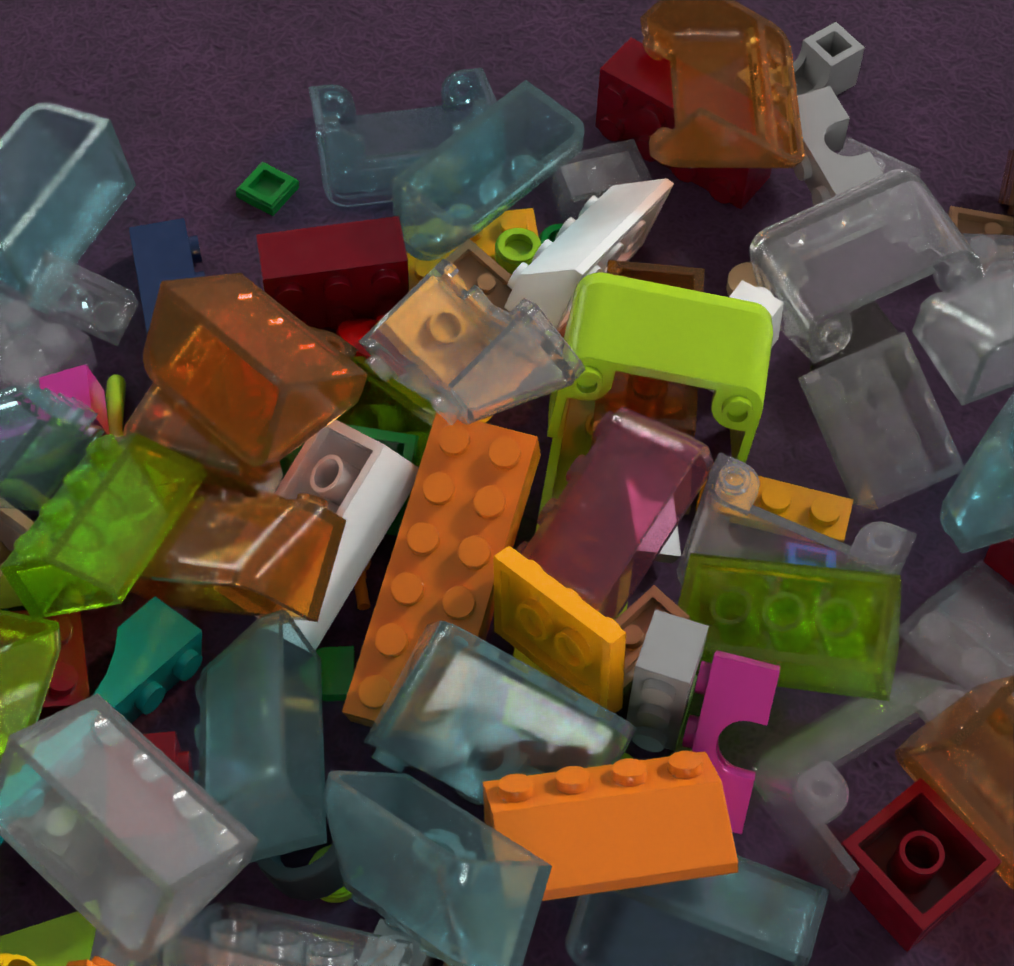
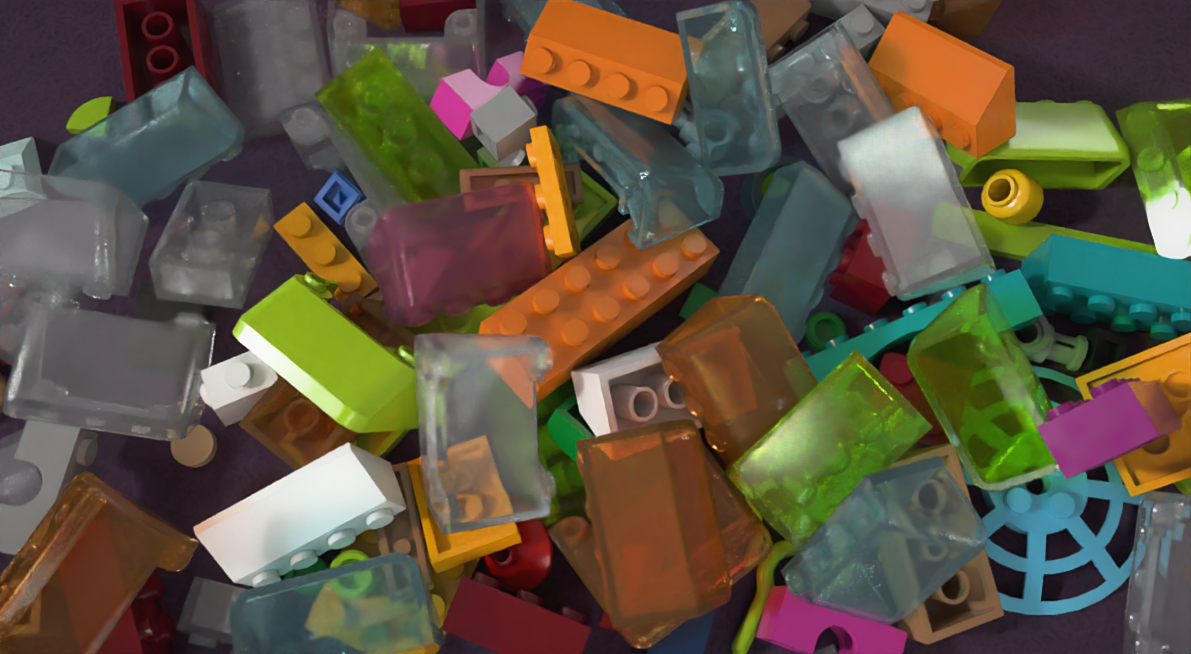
camera: 150 degrees left, 15 degrees up
(175, 716) = (822, 329): none -> green tile

